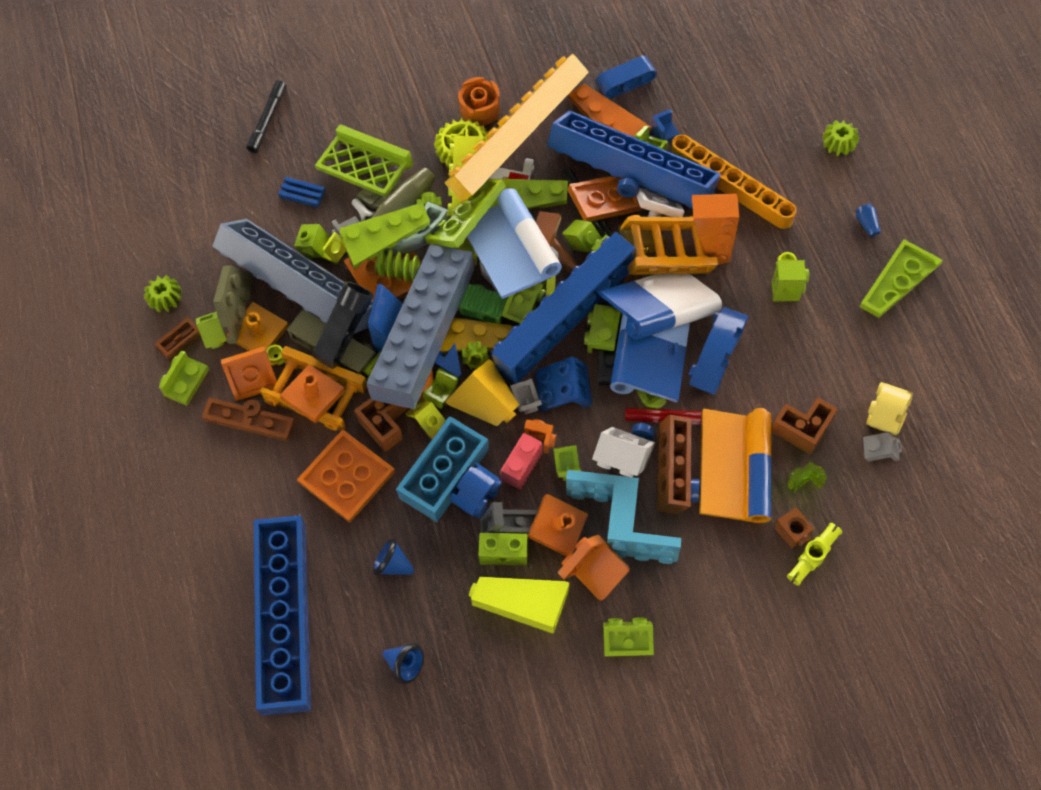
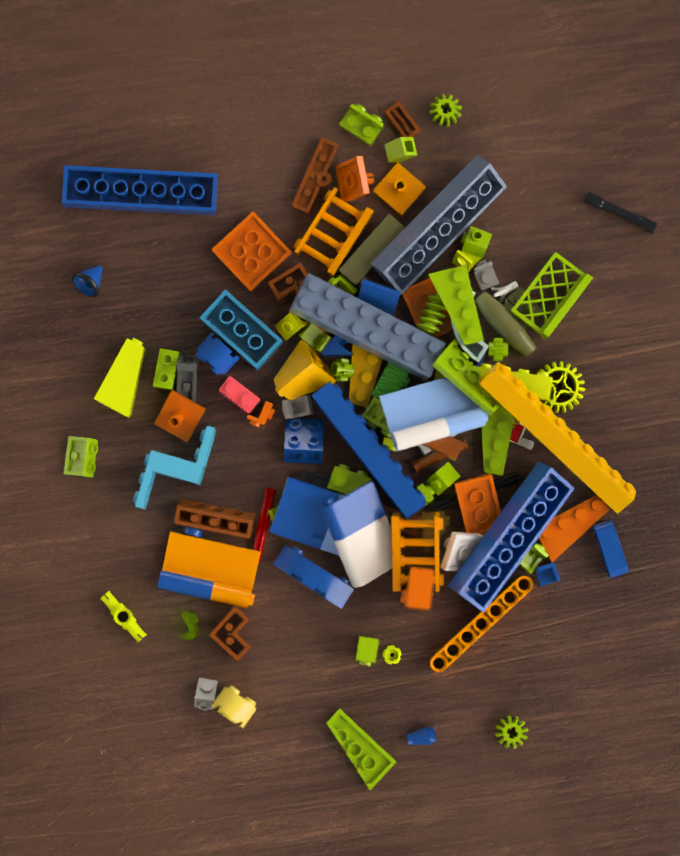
camera: 90 degrees right, 20 degrees up
(232, 299) = (422, 168): olive wing -> none
(275, 350) = (372, 197): neon yellow plate -> none
(303, 189) = (526, 252): blue tile -> none
(312, 393) = (323, 229): orange tile -> none
(342, 323) = (385, 268): black beam -> none
(392, 560) = (172, 280): blue hat -> none
(479, 101) = (607, 399): orange brick -> none
(566, 459) = (232, 432): lime bracket -> none
(595, 566) = (139, 440): orange bracket -> none
(623, 451) = (226, 477): white brick -> none
(628, 187) = (481, 526): blue tile -> none
(643, 430) = (250, 499): blue tile -> none
(794, 519) = (155, 605): dark orange brick -> none

